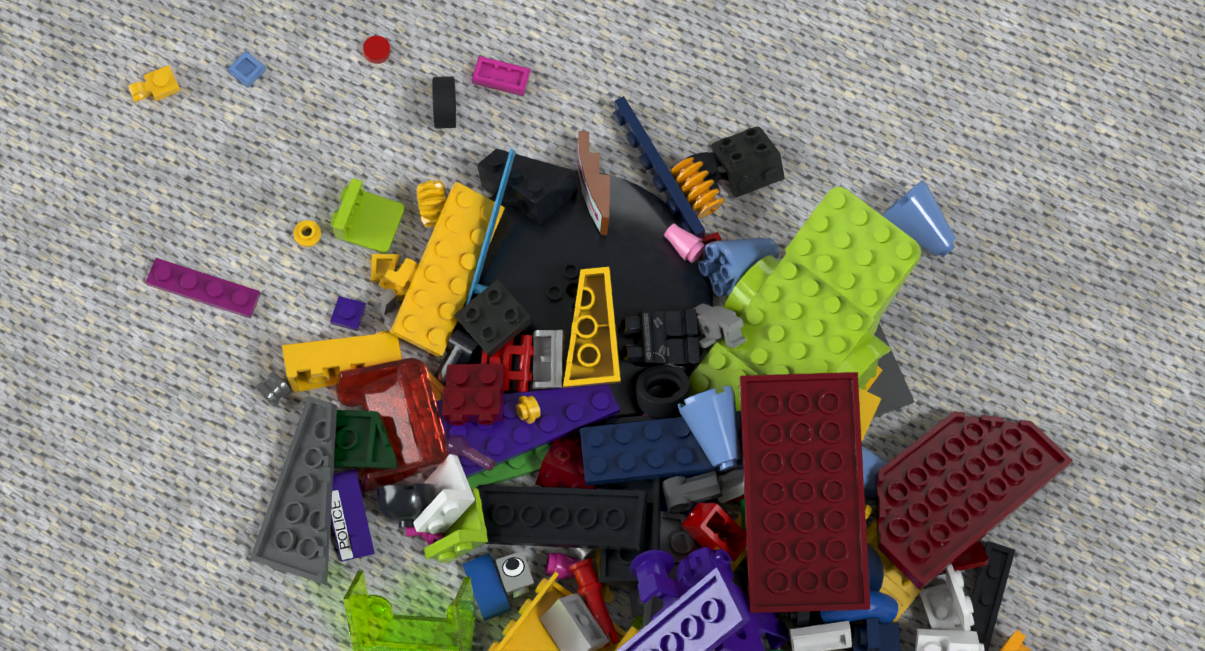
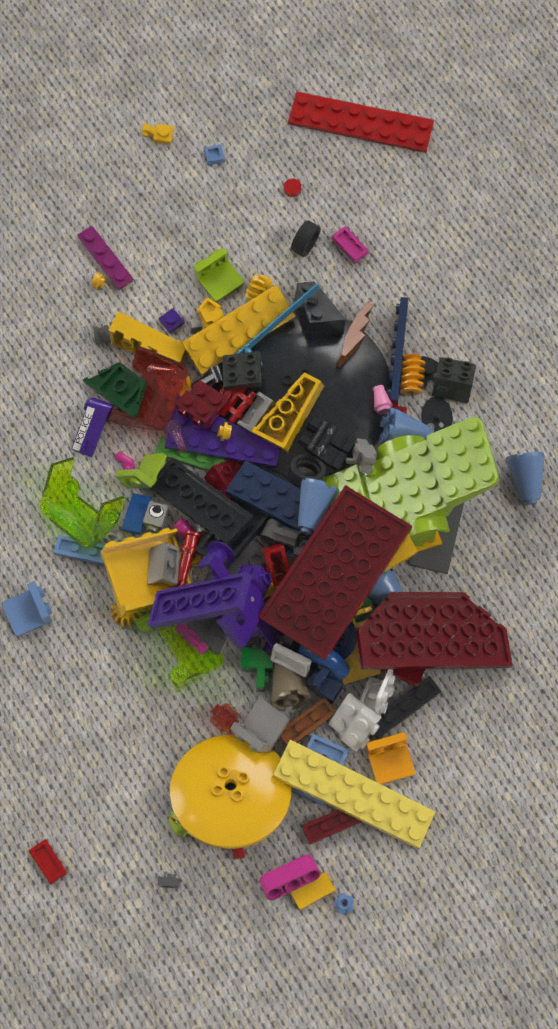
camera: 40 degrees right, 0 degrees up
(217, 323) = (98, 281): none -> yellow plate
(299, 513) = (66, 407): dark grey wing -> none
(312, 239) = (181, 268): yellow plate -> none
(404, 502) = (125, 440): black cylinder -> none
(451, 497) = (146, 452): white bracket -> none
(755, 212) = (437, 411): none -> black piece

